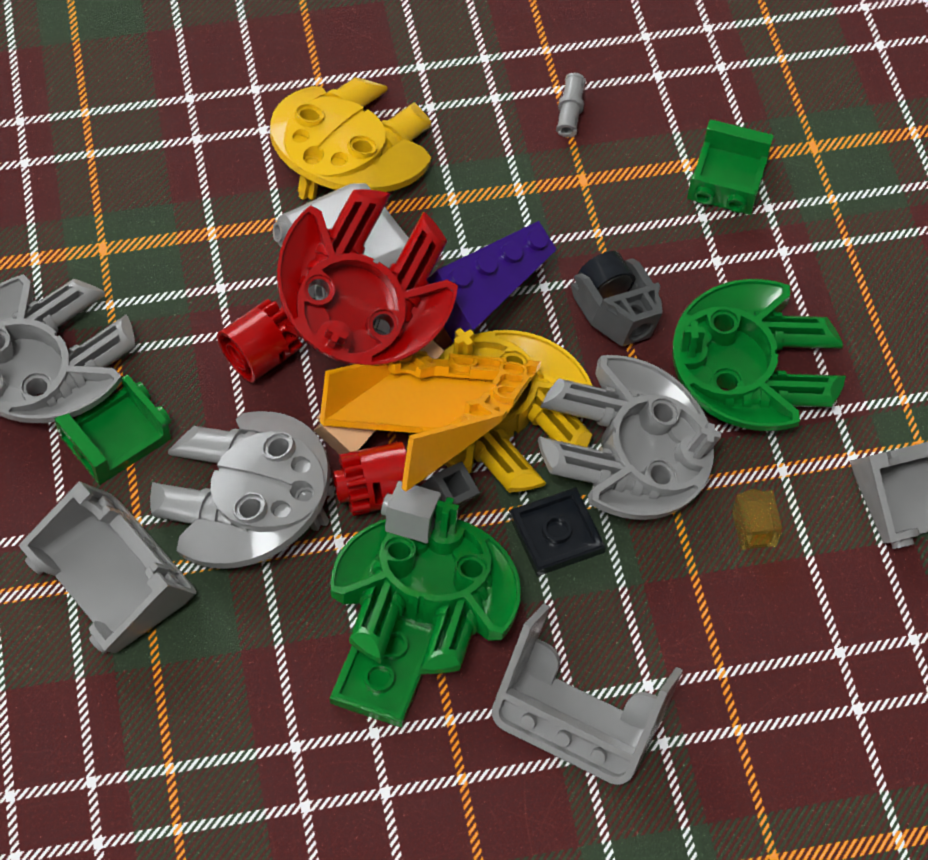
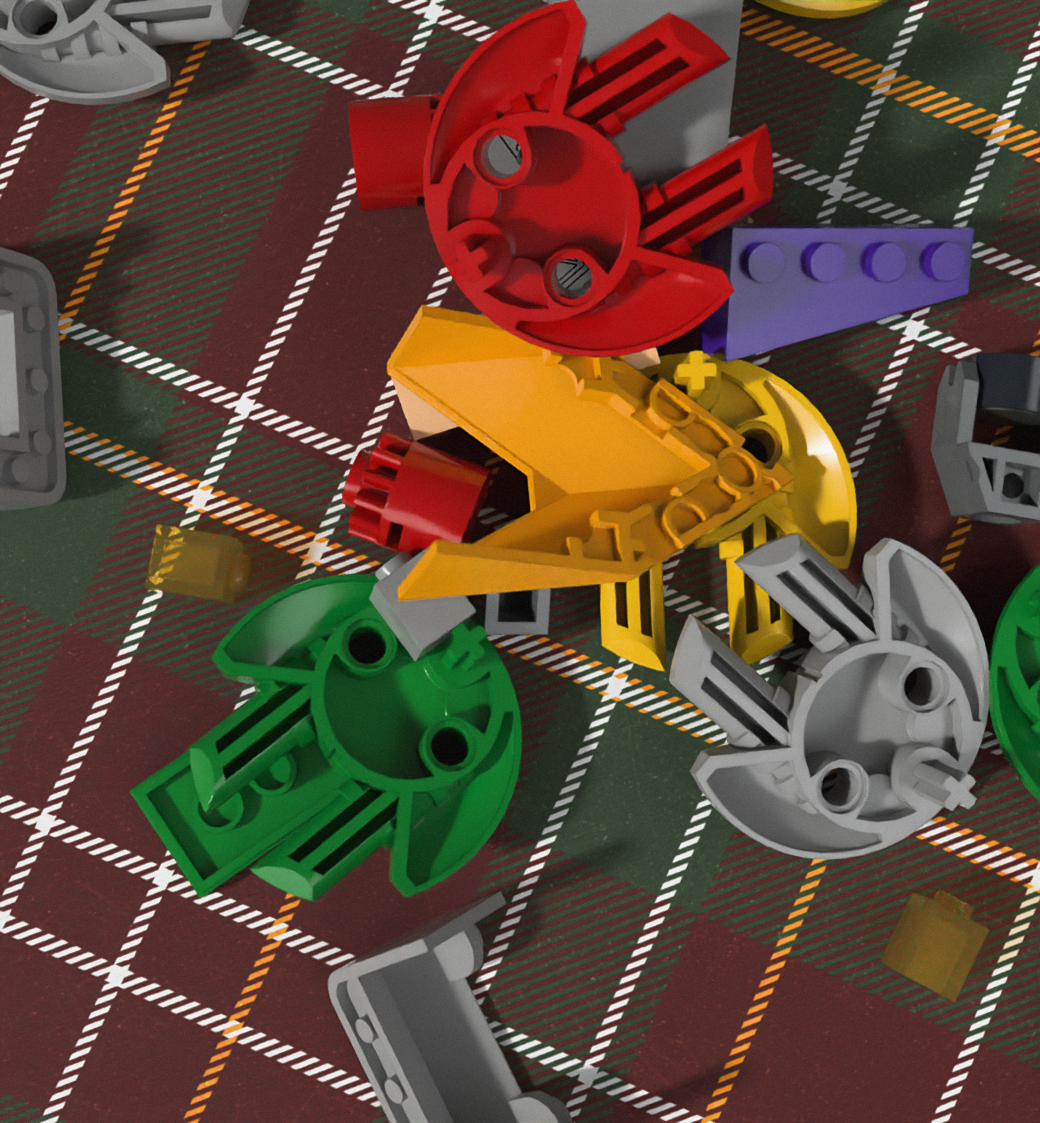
camera: 35 degrees right, 25 degrees up
(116, 431) = (113, 161): green panel -> none
(258, 501) = (231, 391): light grey piece -> none
(288, 575) = (197, 565): none -> clear yellow brick
(556, 531) = (631, 751): black tile -> none

